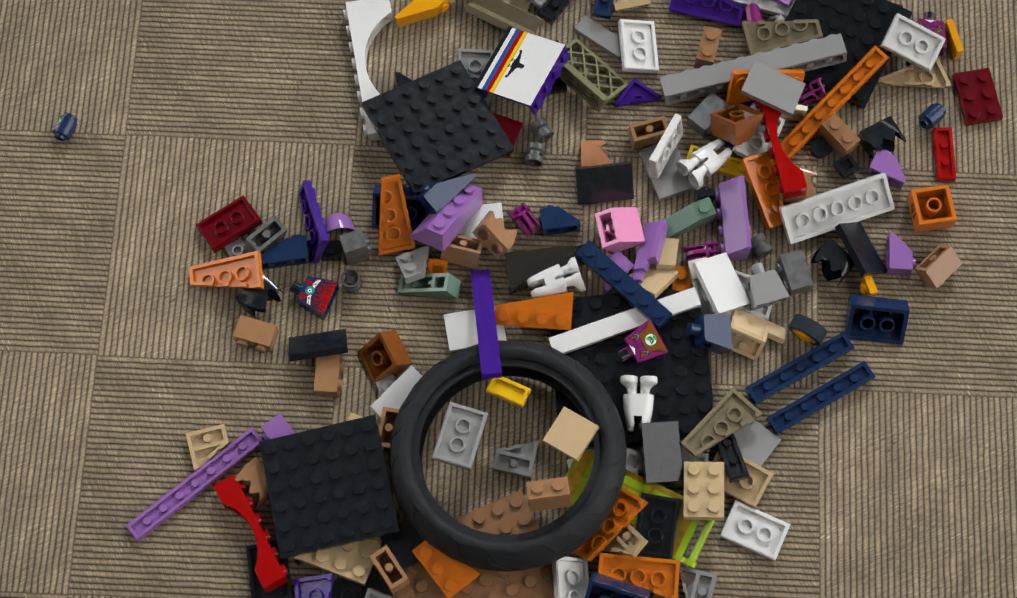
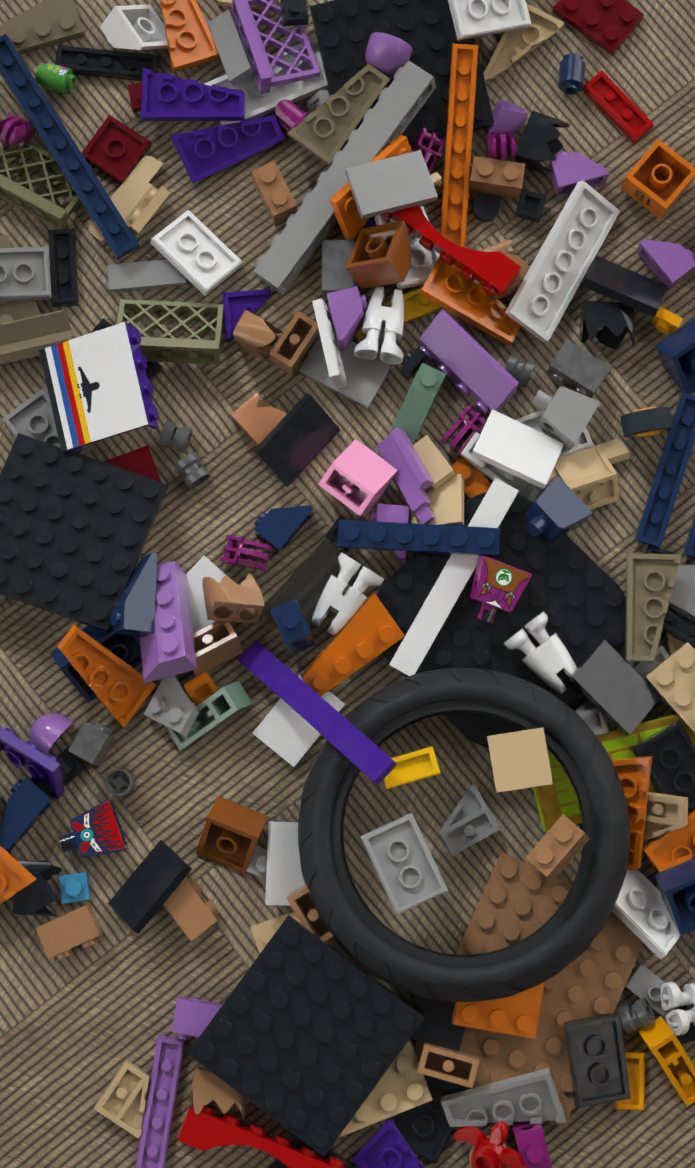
camera: 40 degrees left, 10 degrees up
(279, 315) = (74, 887): none -> dark azure plate
(514, 270) = (292, 626): none -> dark blue torso
(630, 109) = (254, 335): none -> medium nougat piece
(690, 139) = (347, 314): none -> medium lavender slope
(833, 22) = (387, 53): none -> medium lavender helmet
(856, 121) = (501, 146): none -> magenta arm
(872, 110) = (507, 117): none -> medium lavender helmet

